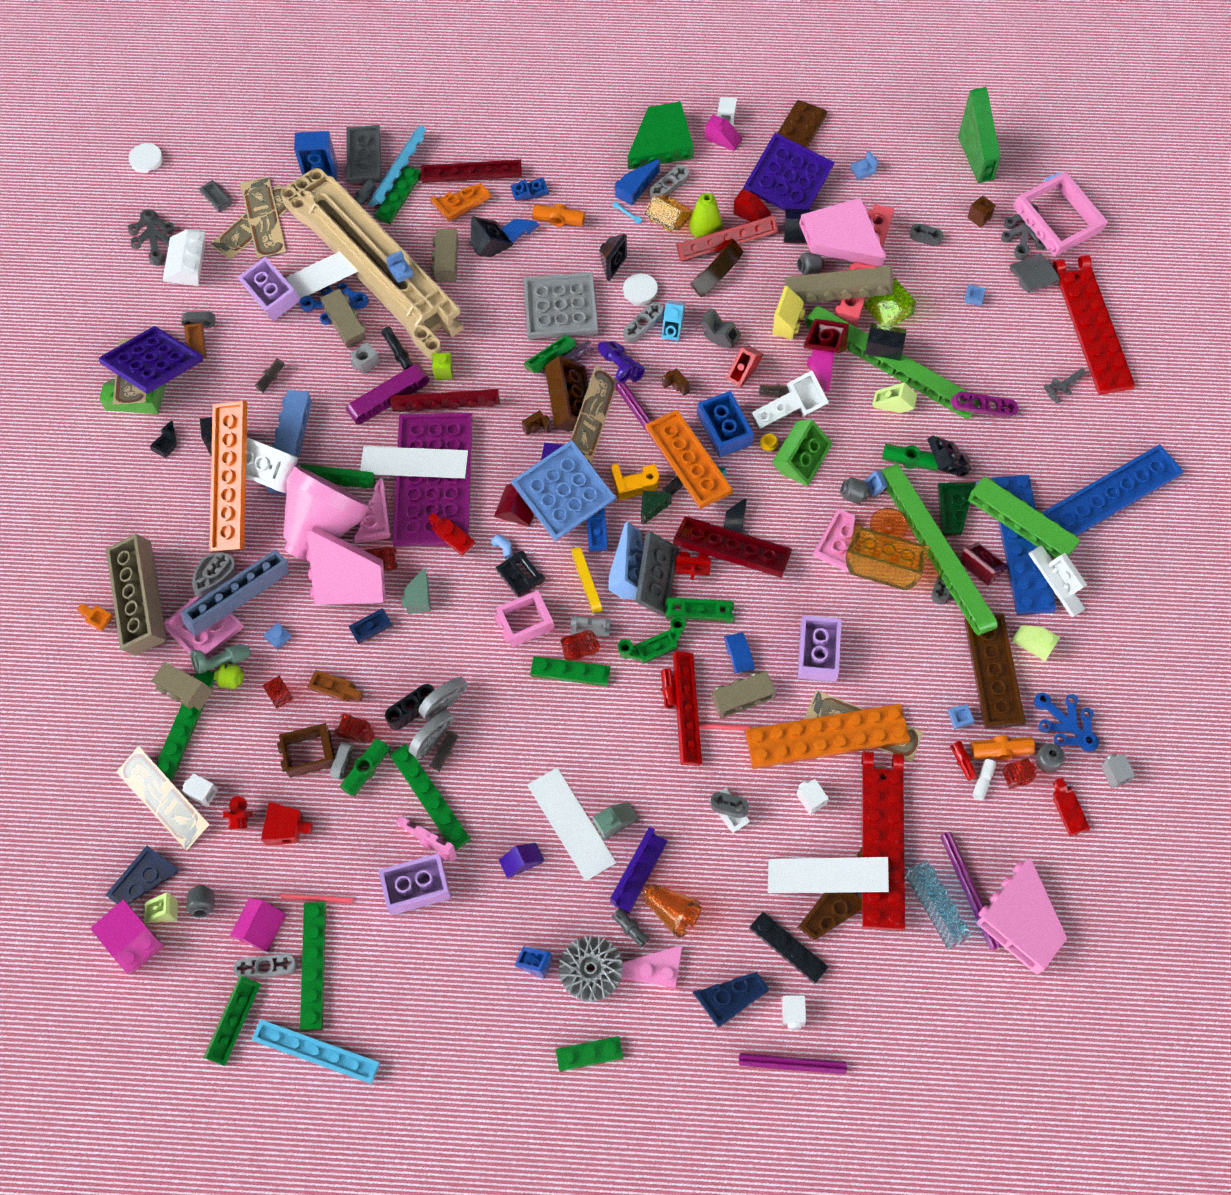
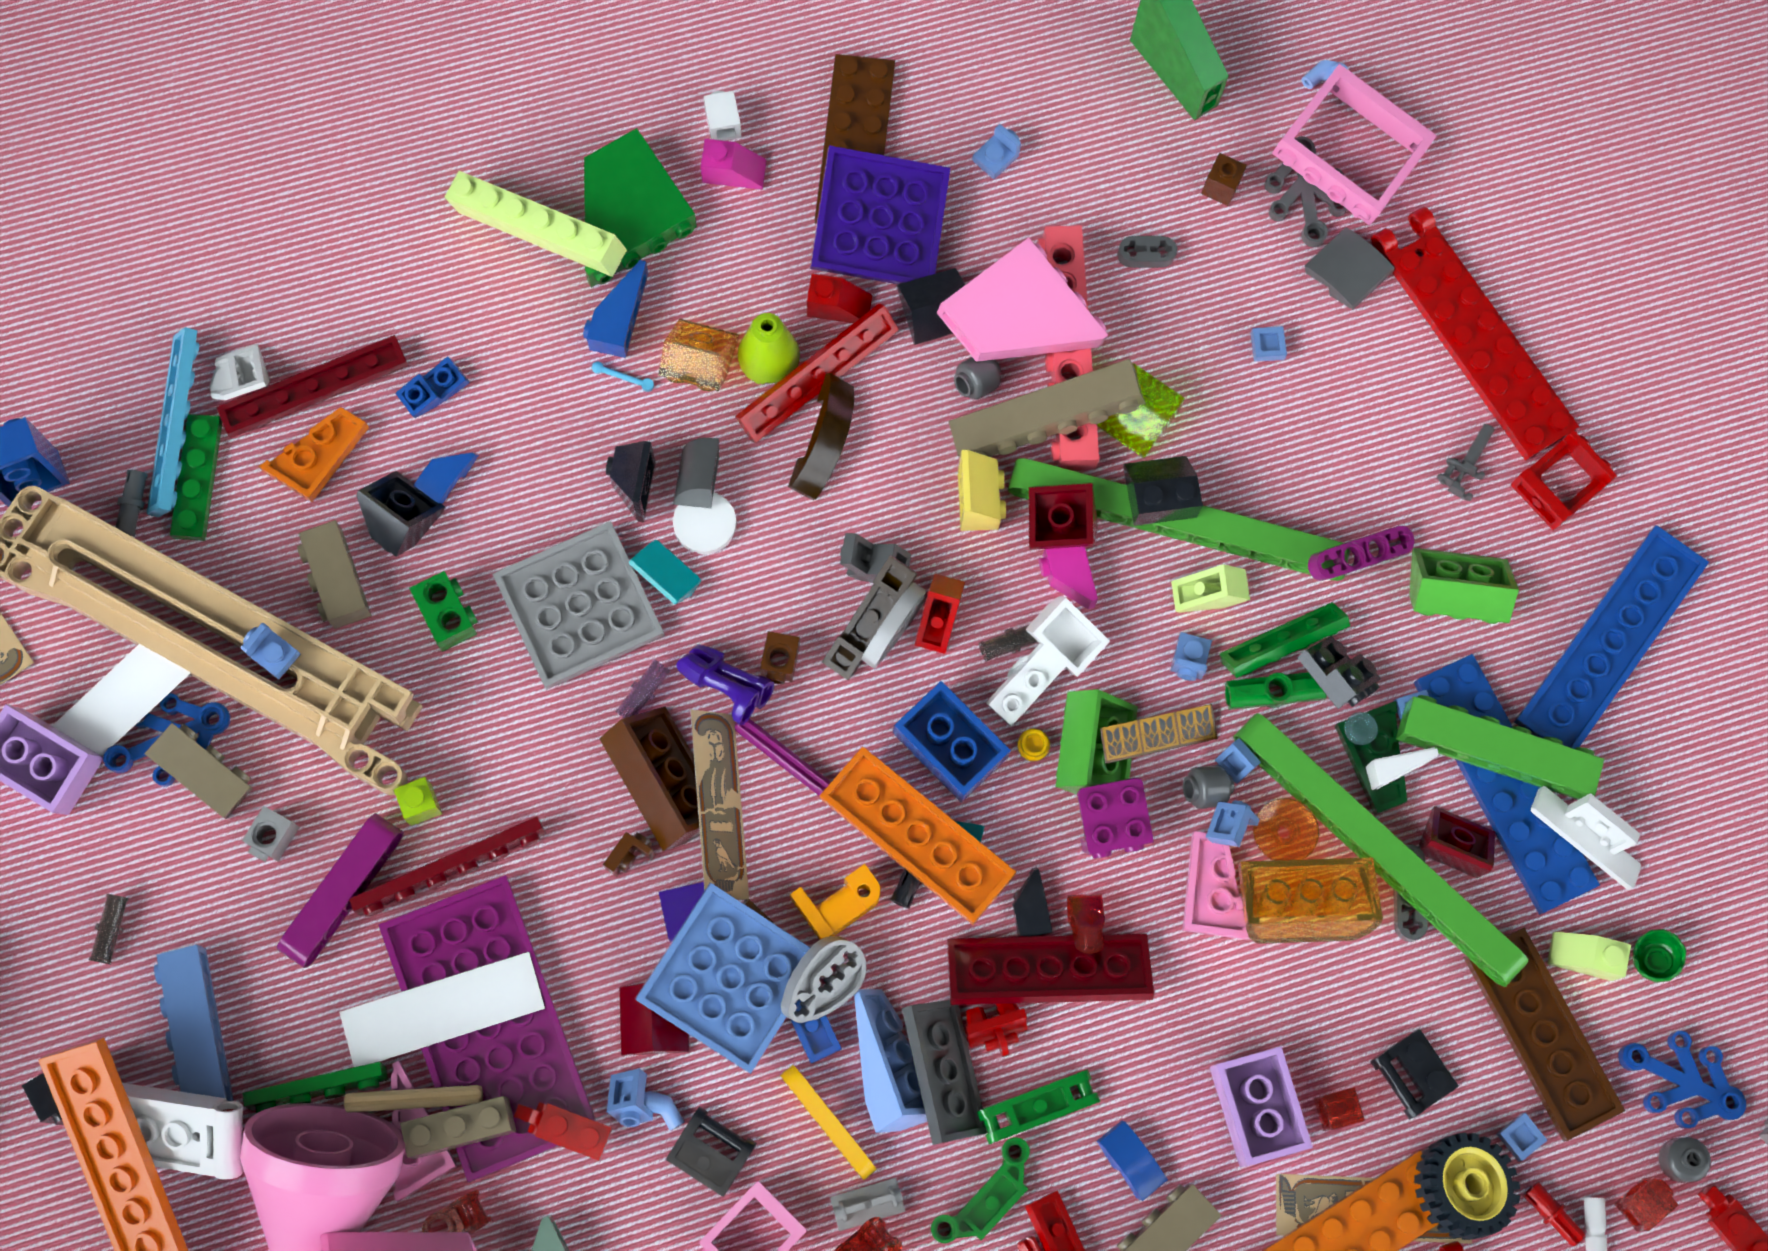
camera: 30 degrees left, 10 degrees up
(363, 154) = (99, 416): dark grey plate -> none
(382, 495) = (413, 1098): none -> tan axle
(398, 513) = (458, 1127): none -> dark tan brick
(400, 354) = (333, 802): black pin -> none
(438, 155) = (238, 373): none -> white slope
(487, 534) = (627, 1098): none -> medium blue bracket
(491, 287) = (439, 613): none -> green brick
(556, 349) = (597, 709): green plate -> none
(558, 215) = (505, 424): orange piece -> none
(610, 303) = (665, 572): none -> teal slope
(611, 127) = (536, 223): none -> yellowish green brick
(611, 497) = (817, 962): none -> light grey piece
(644, 315) = (735, 562): light grey beam -> none
(646, 264) = (697, 473): none -> dark grey brick
(653, 353) = (780, 644): none -> reddish brown brick
(653, 503) = (884, 936): clear green slope -> none
(672, 176) = (674, 280): light grey beam -> none
(673, 320) = (786, 566): medium azure slope -> none
(677, 380) = (842, 685): reddish brown bracket -> none
(709, 354) = (850, 646): none -> slope
(717, 361) = (895, 624): none -> light grey piece
(762, 530) = (1086, 919): none -> clear red piece
(796, 485) = (1114, 817): none -> magenta bracket
(838, 455) = (1158, 733): none -> sticker
(859, 507) = (1230, 823): none -> medium blue bracket
(862, 666) = (1339, 1109): none -> clear red brick
(871, 428) = (1190, 657): none -> medium blue bracket
(916, 739) = (1491, 1190): none -> wheel
(917, 436) = (1284, 640): none -> green plate
(918, 664) = (1423, 1069): none -> black plate
(950, 487) = (1361, 728): none -> clear light blue plate
(962, 509) = (1387, 769): none -> white slope
(1002, 747) = (1605, 1167): orange piece -> none
(1035, 440) = (1462, 586): none -> bright green slope
(1075, 652) = (1659, 955): none -> green hair
(1100, 416) = (1543, 500): none -> red window

